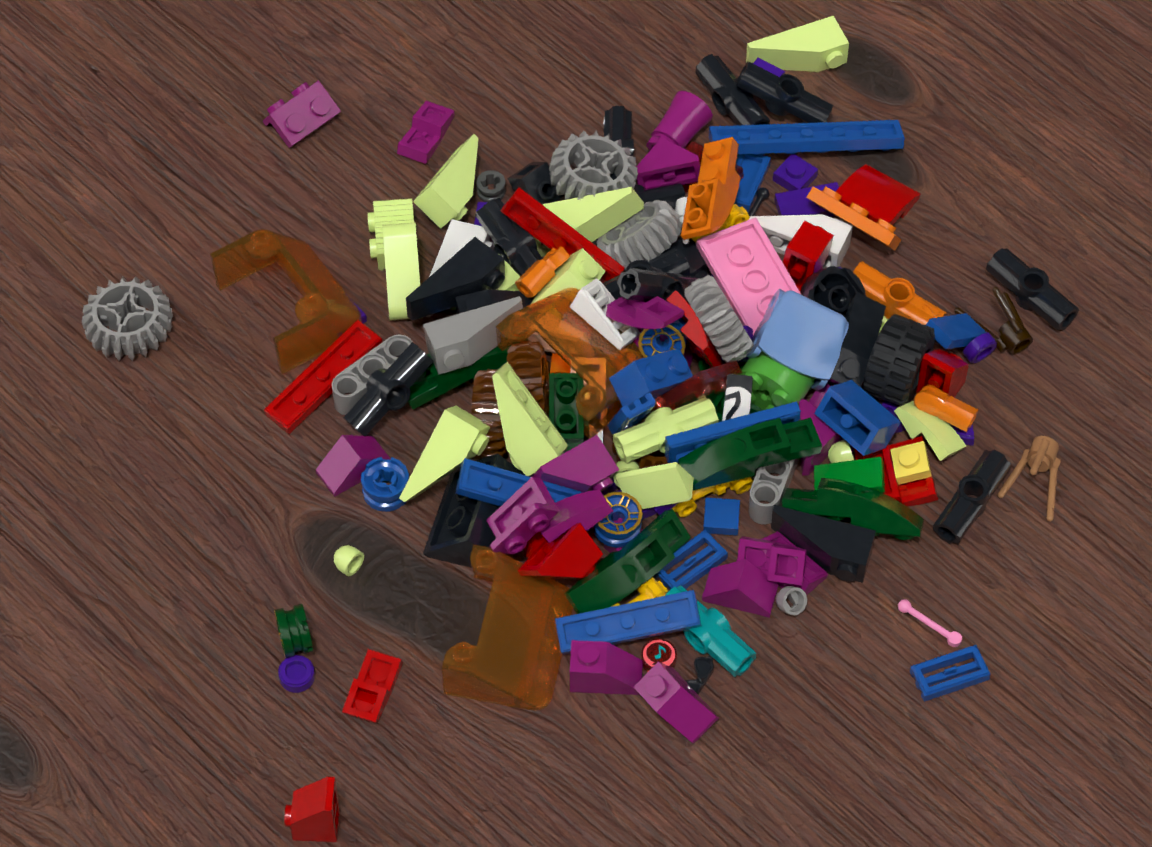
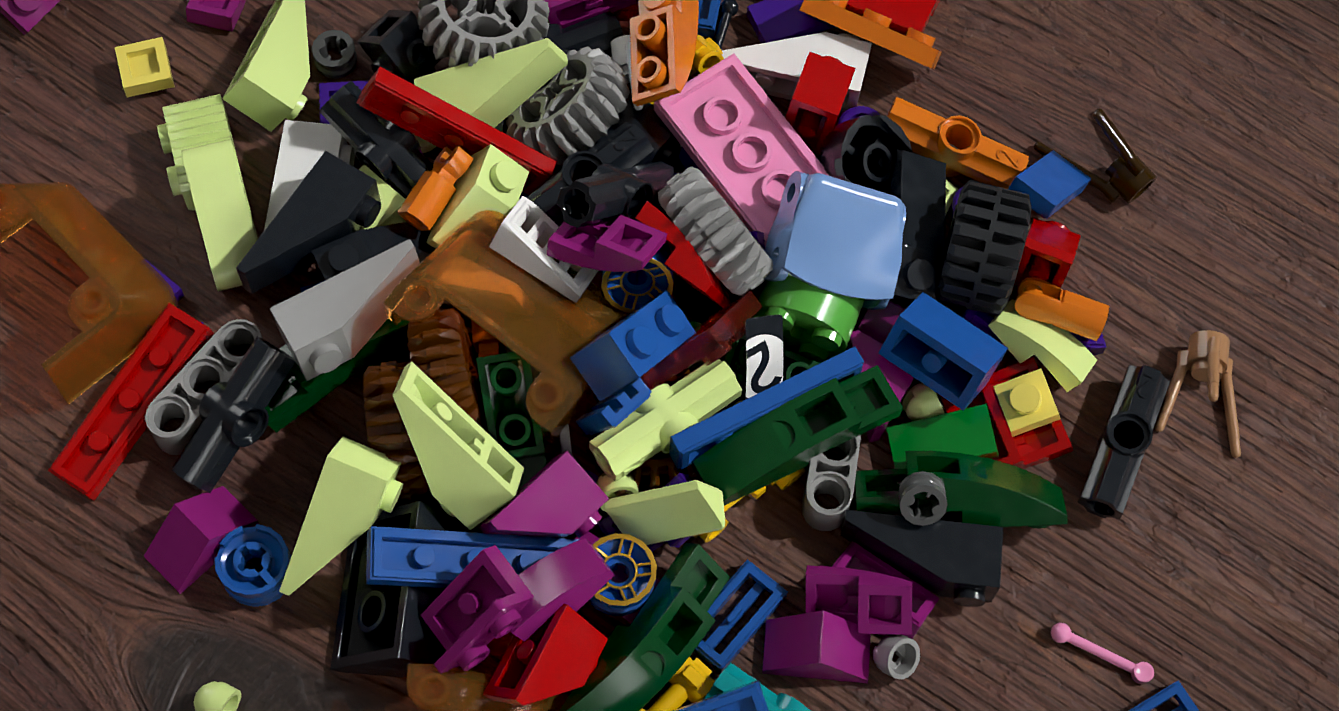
camera: 15 degrees left, 10 degrees up
(364, 177) = (144, 67): none -> light yellow plate
(721, 516) = (766, 531): blue tile -> none
(818, 512) = (926, 513): none -> dark grey bush
(980, 348) = (1086, 203): dark purple tile -> none
(1022, 280) = (1160, 116): black piece -> none

